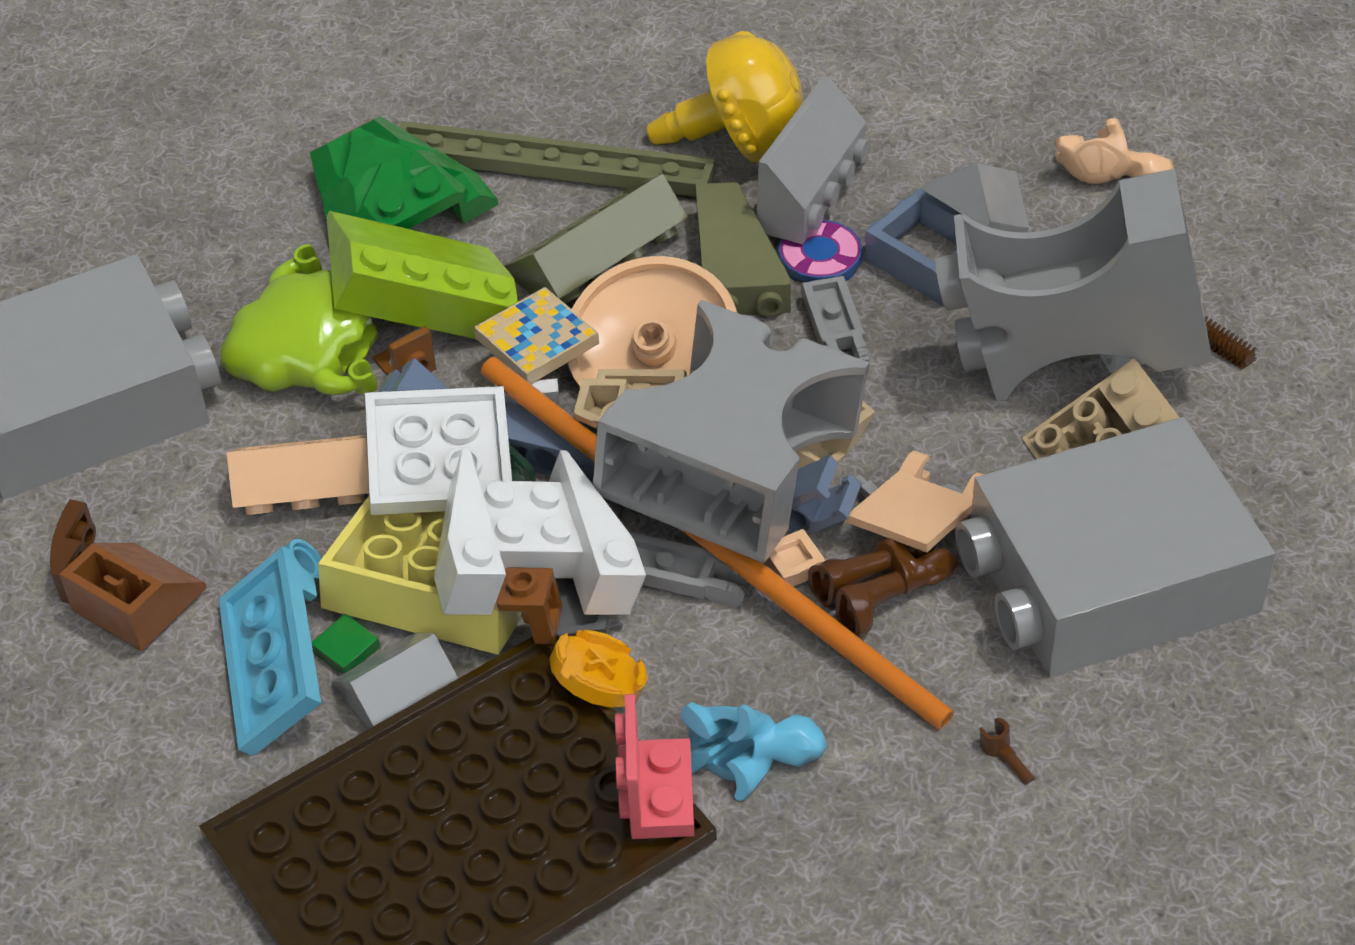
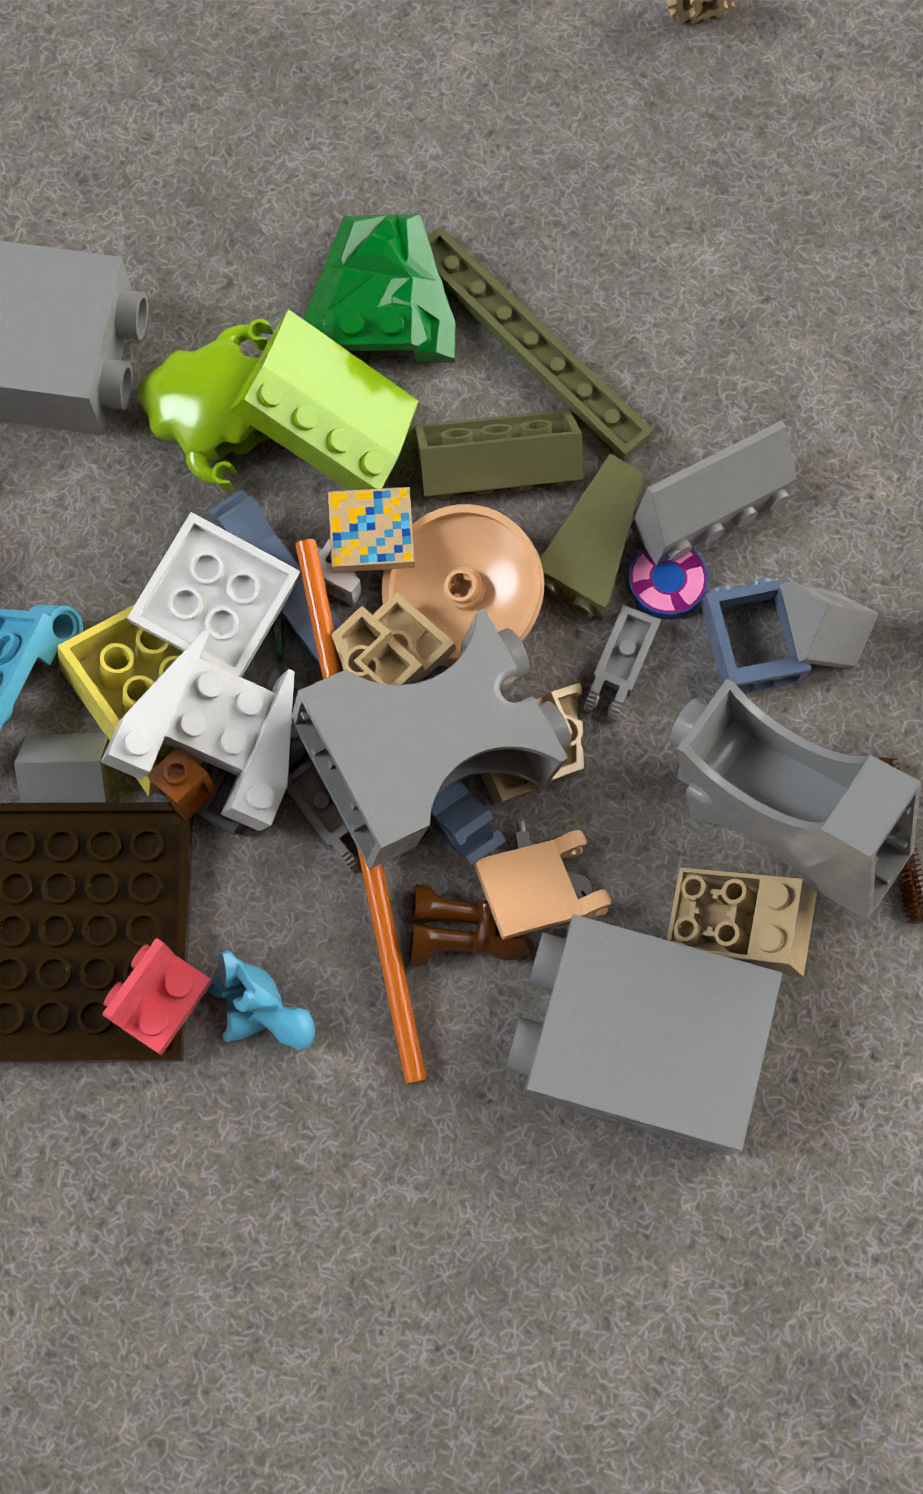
camera: 30 degrees right, 25 degrees up
(299, 473) = (118, 527): light nougat slope -> none
(345, 644) = (55, 710): green tile -> none
(415, 345) = (277, 480): dark orange bracket -> none
(597, 668) = (201, 864): light orange tile -> none
(750, 95) = (715, 389): yellow piece -> none
(794, 557) = (417, 865): light nougat plate -> none
(1000, 747) = (437, 1141): reddish brown hand -> none

